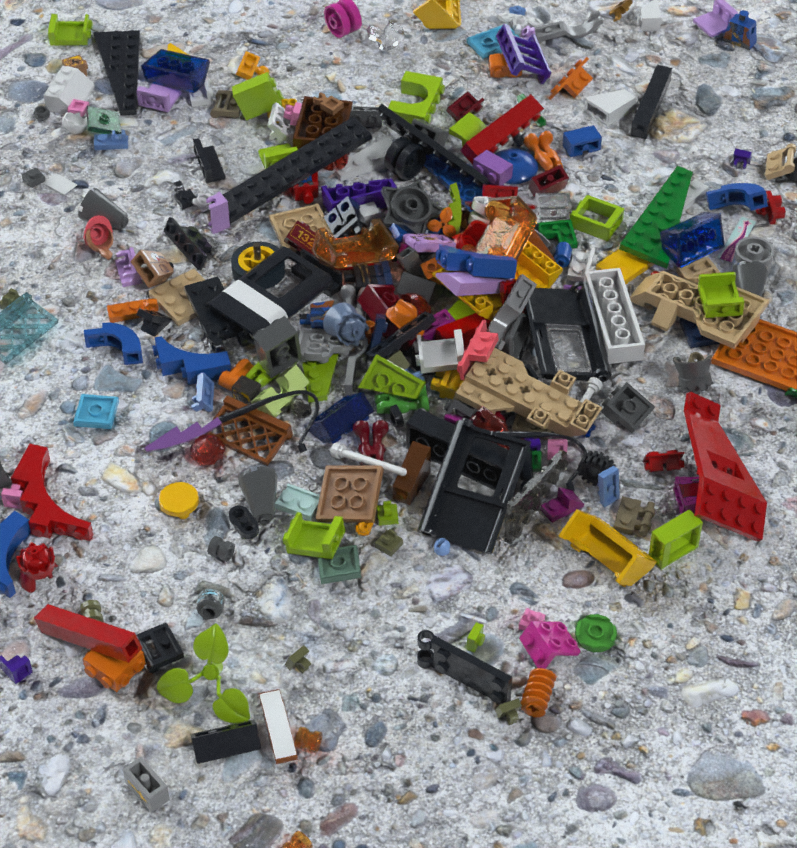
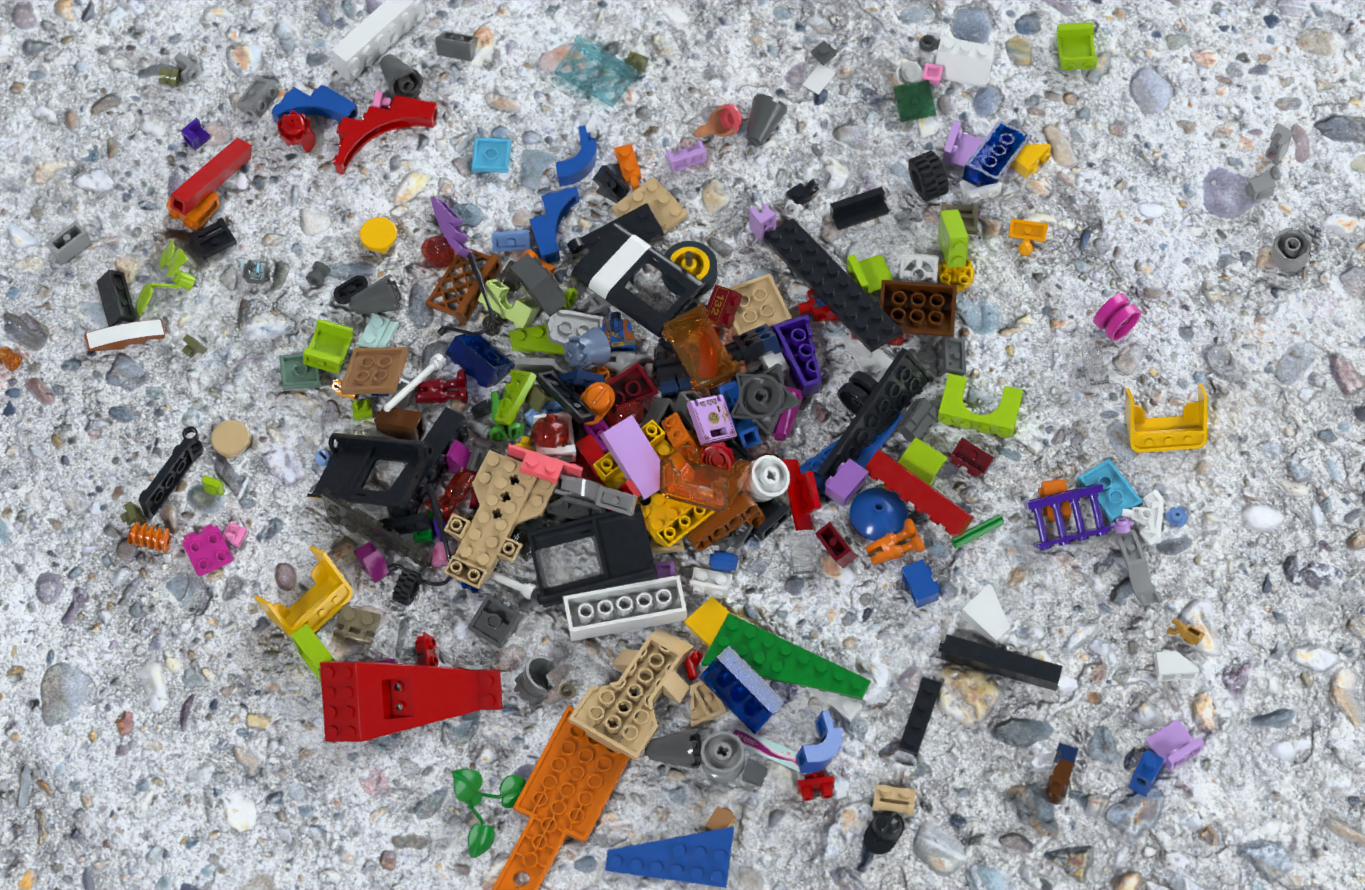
camera: 90 degrees right, 15 degrees up
(76, 62) = (1006, 61): medium nougat brick -> none
(92, 609) = (243, 185): olive wheel -> none
(111, 141) = (888, 114): medium blue plate -> none
(121, 63) = (1035, 104): black wing -> none
(152, 267) = (676, 174): medium nougat torso -> none
(186, 99) = (928, 176): none -> black tyre
(189, 242) = (729, 207): black bracket -> none
(292, 113) = (928, 278): bright pink tile -> none
(308, 739) = (111, 359): clear orange wheel -> none
(330, 105) = (937, 309): medium nougat plate -> none
(389, 542) = (327, 412): olive tile -> none
(414, 620) = (230, 438): none -> tan tile
(441, 343) = (550, 431): none -> clear red cylinder
(445, 216) = (745, 431): orange plant -> none
(455, 207) = (779, 442): lime slope -> none
(476, 263) = (645, 452): blue arch -> none
(562, 230) = (764, 563): green plate -> none
(575, 82) = (1033, 578): orange bracket -> none
(593, 227) = (779, 614): lime window -> none
(595, 633) = (219, 589): bright green tile -> none
(608, 486) = (382, 596): medium blue plate -> none
(674, 420) = (473, 662): none -> light grey wheel
(700, 150) = (920, 716): none -> black plate
(720, 295) = (635, 705): lime panel -> none
(742, 156) = (904, 760): dark purple tile -> none
(749, 70) = (1060, 778): none -> reddish brown hips

